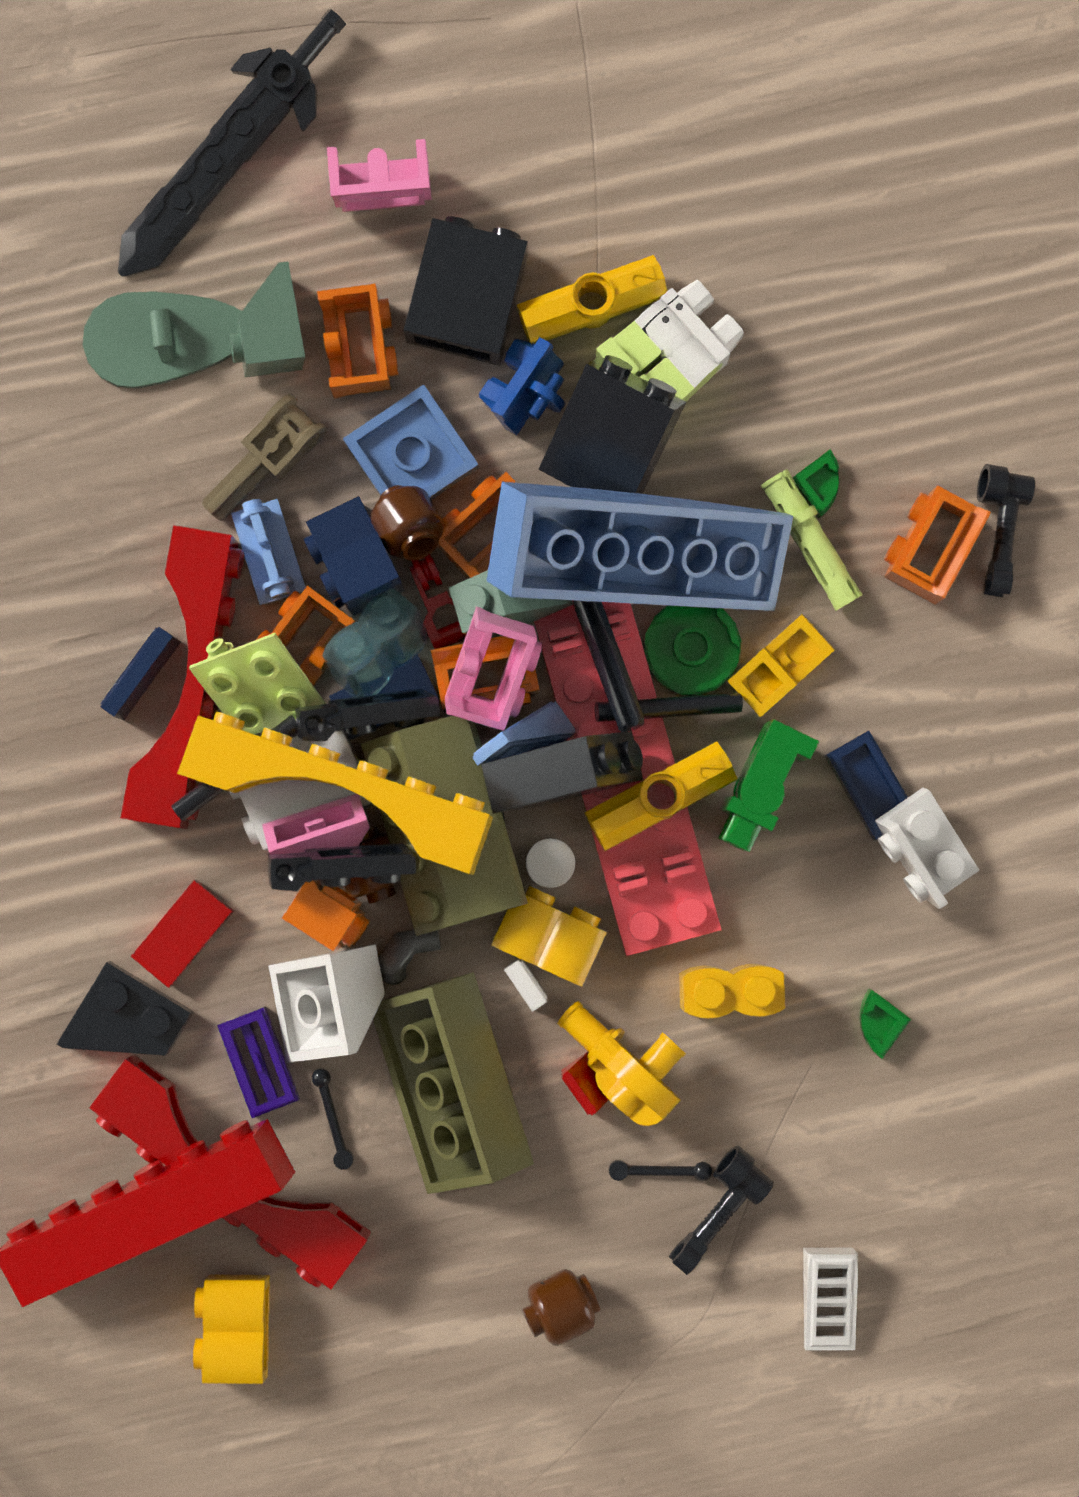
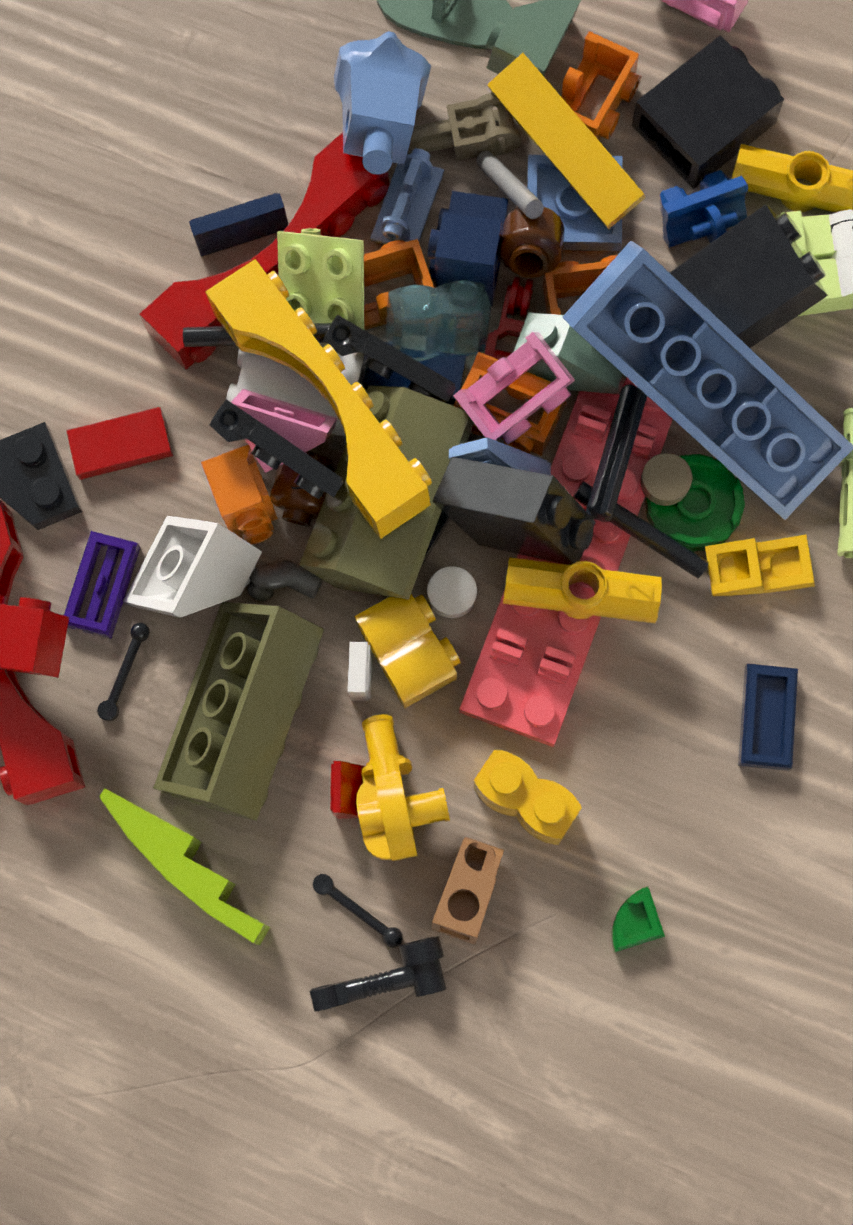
camera: 45 degrees right, 10 degrees down
(185, 484) = (379, 95): none -> medium blue piece
(351, 483) = (510, 185): none -> light grey bar
(369, 409) = (566, 141): none -> yellow tile
(481, 1237) = (172, 855): none -> lime slope
(561, 1307) = (189, 959): reddish brown head -> none
(659, 648) = (666, 479): none -> dark tan tile
(737, 1094) = (468, 891): none -> medium nougat leg
(761, 782) = (676, 638): green hips -> none
(830, 1259) = (447, 1092): white slope -> none
(926, 846) = (779, 798): white bracket -> none

